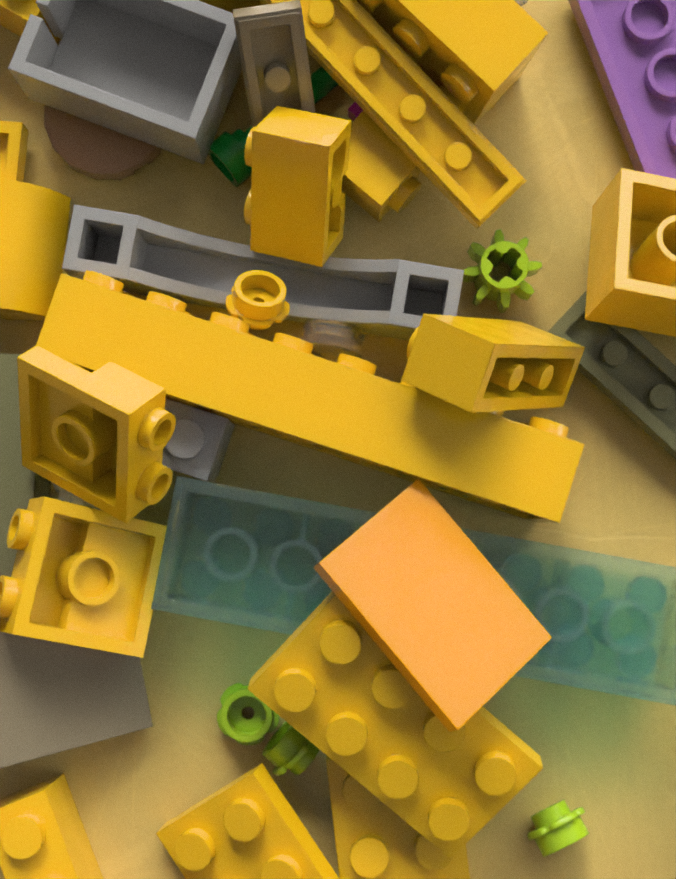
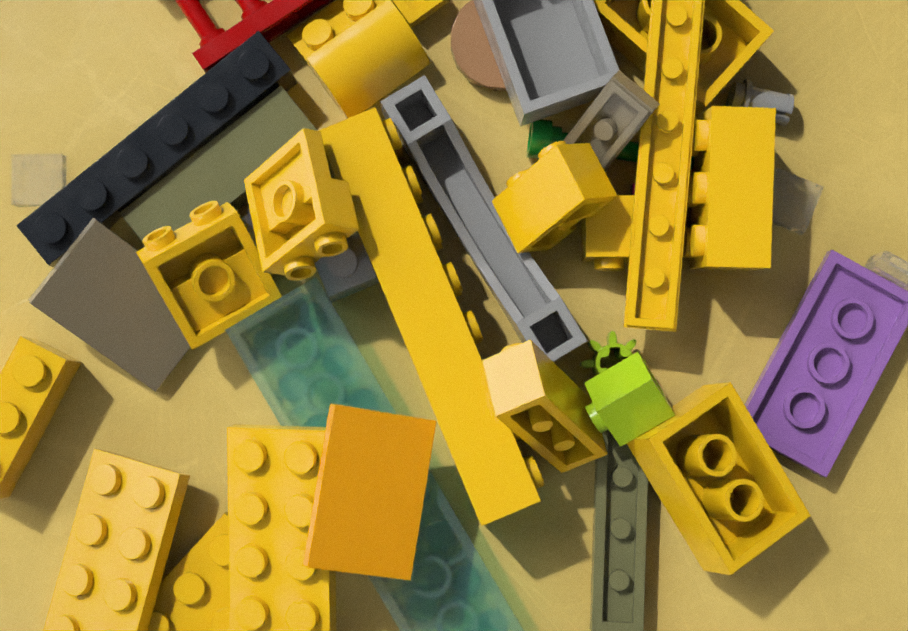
camera: 45 degrees right, 0 degrees up
(233, 723) = (198, 441): lime plate -> none
(258, 299) = (464, 232): yellow plate -> none
(289, 751) = (212, 486): lime plate -> none
(333, 338) = (481, 297): clear tile -> none
(553, 280) = (627, 400): none -> lime brick

